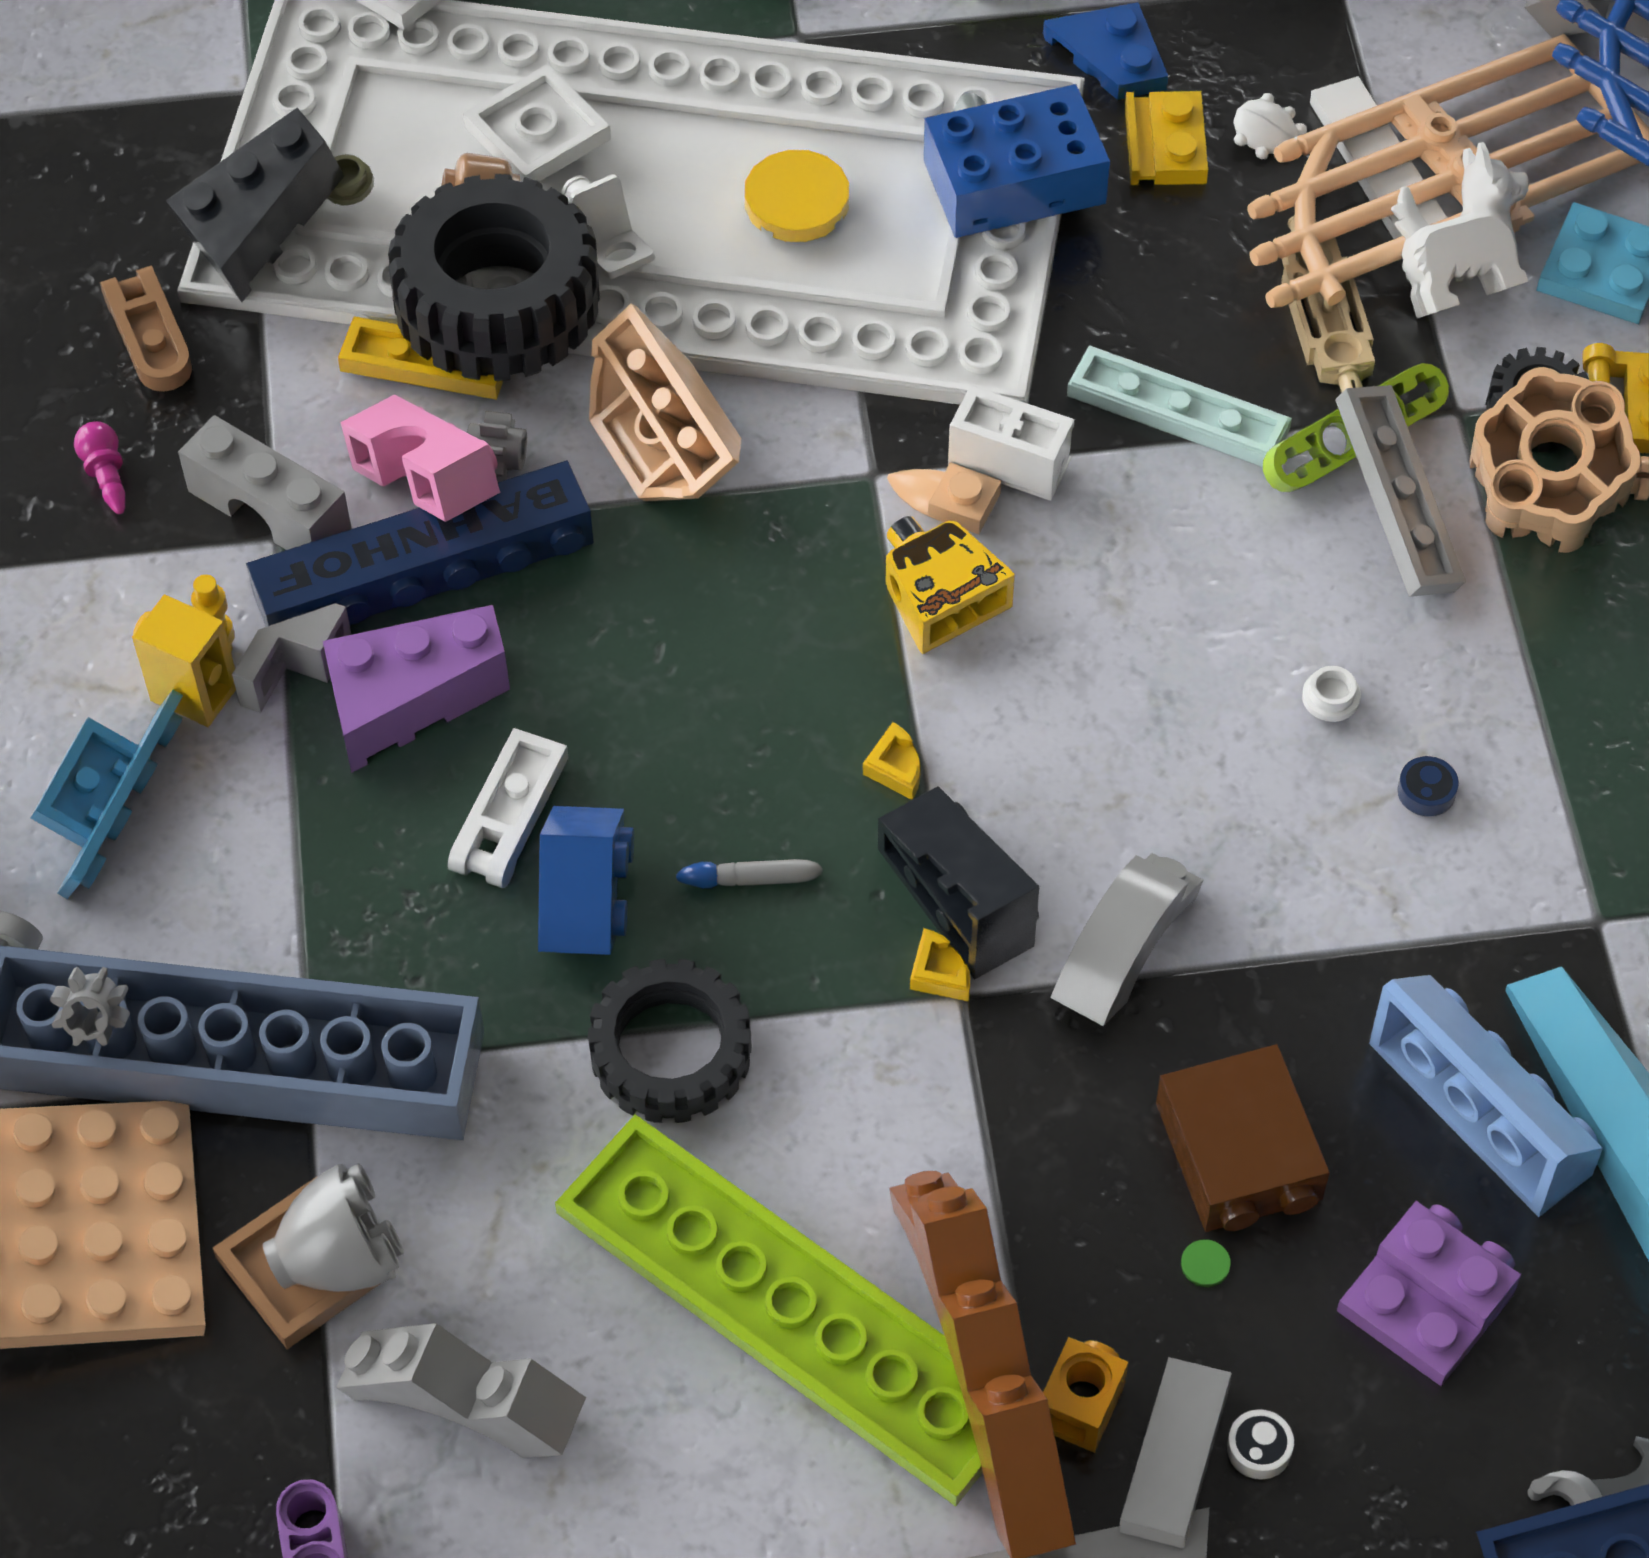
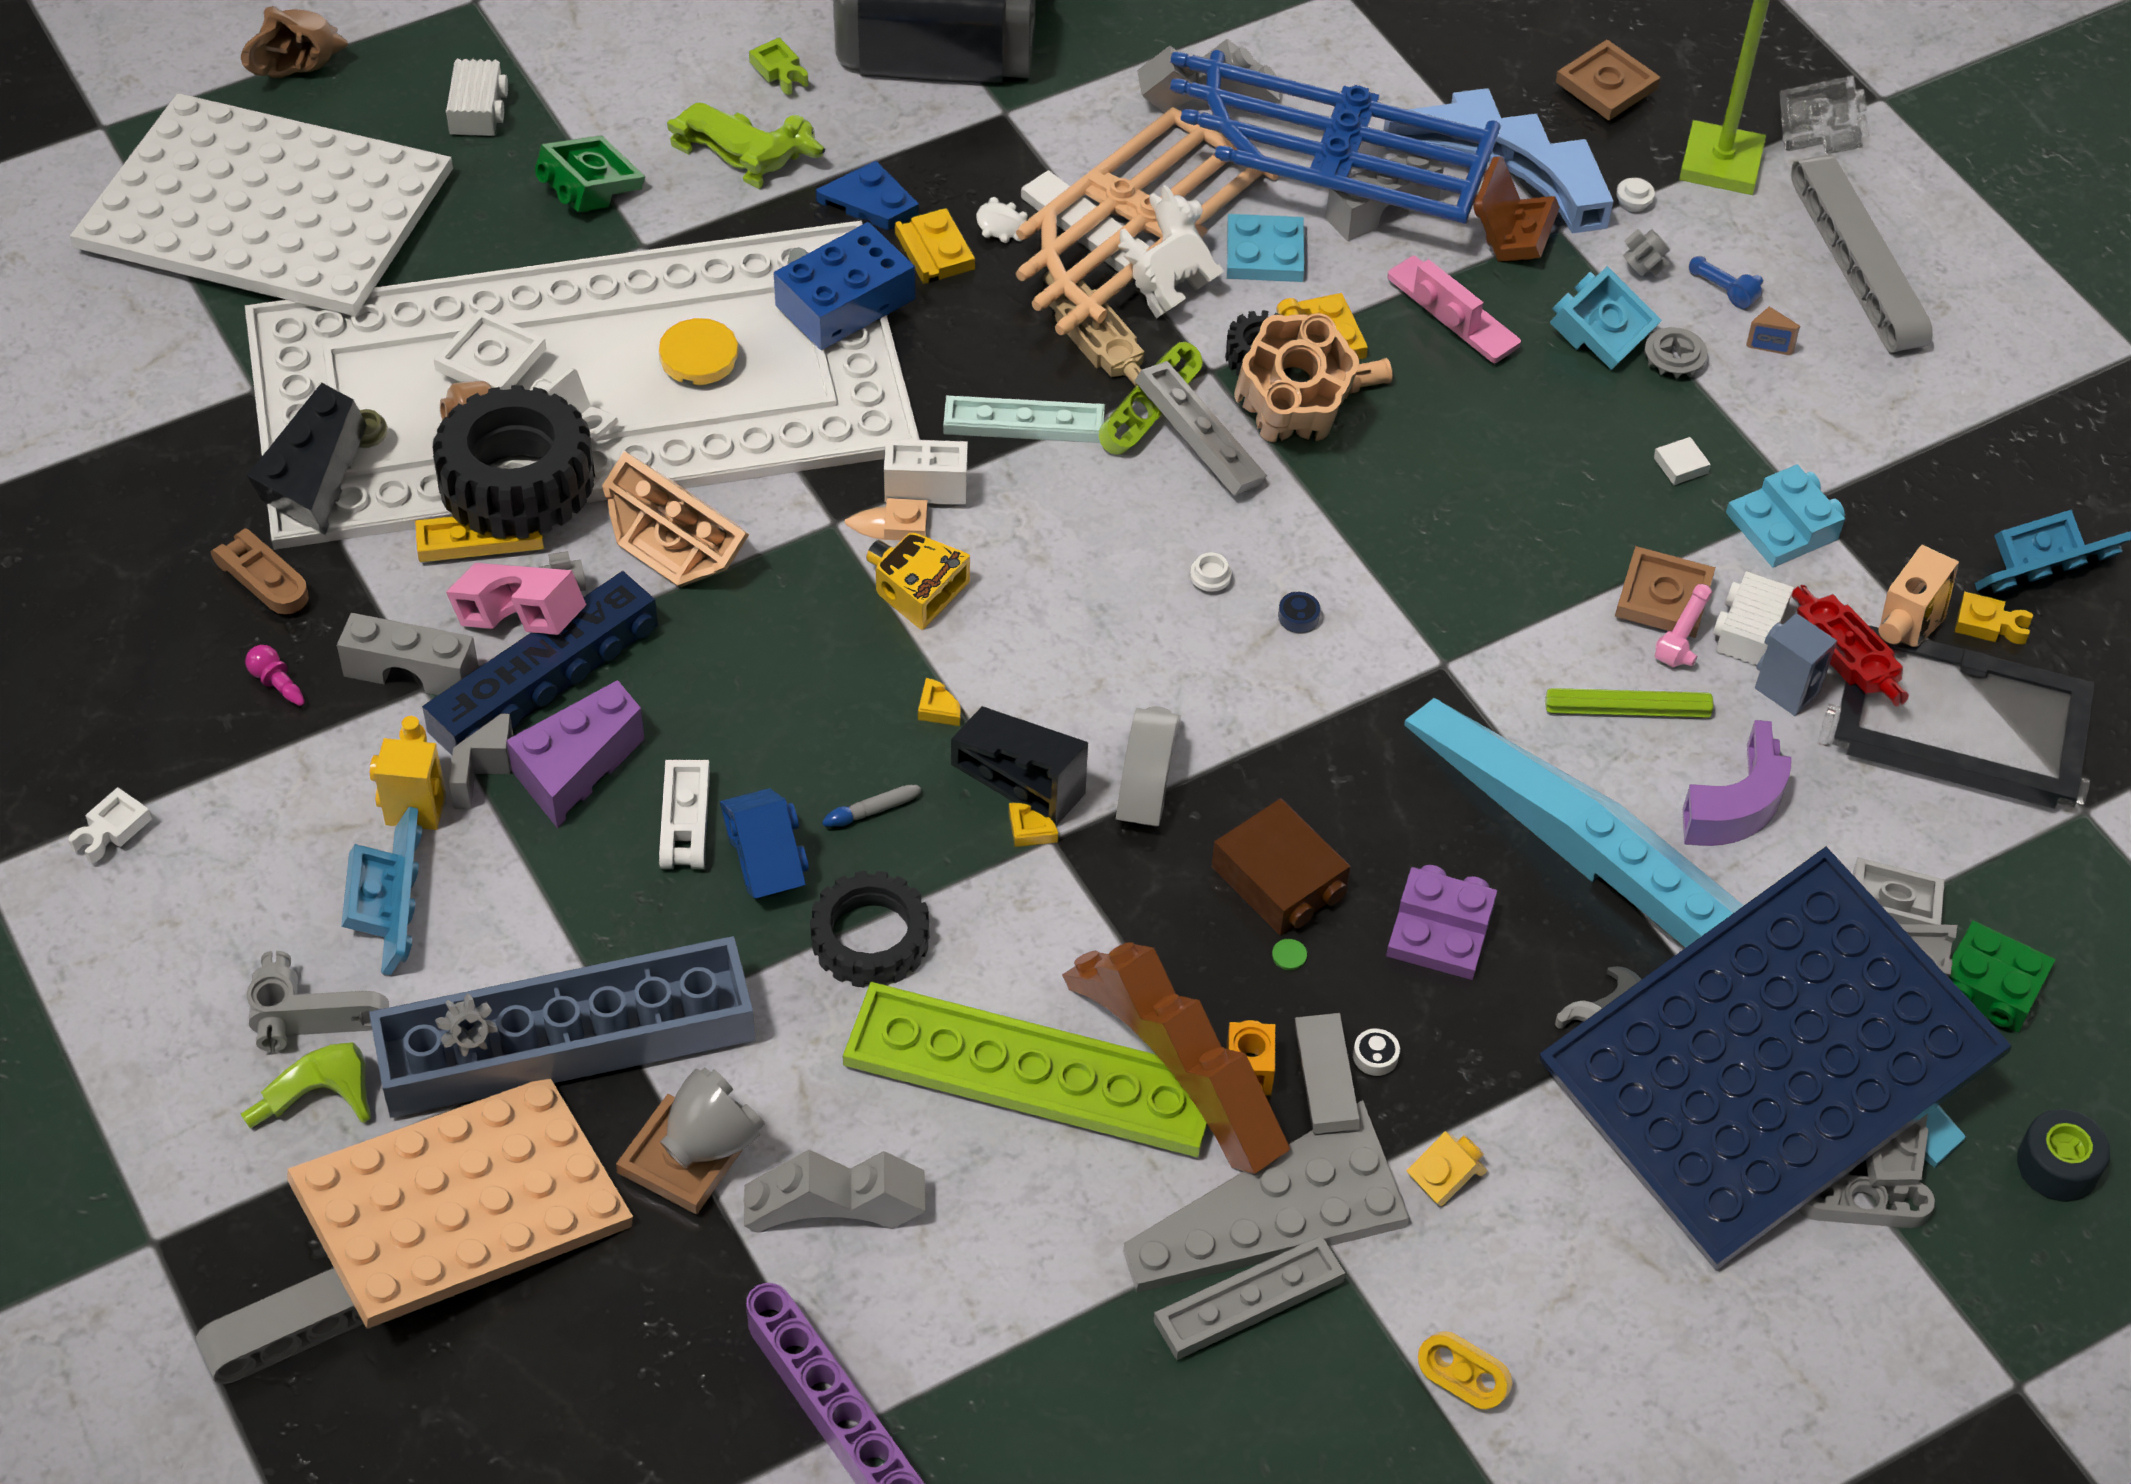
camera: 25 degrees left, 5 degrees down
(1483, 1091) = (1421, 789): light blue slope -> none

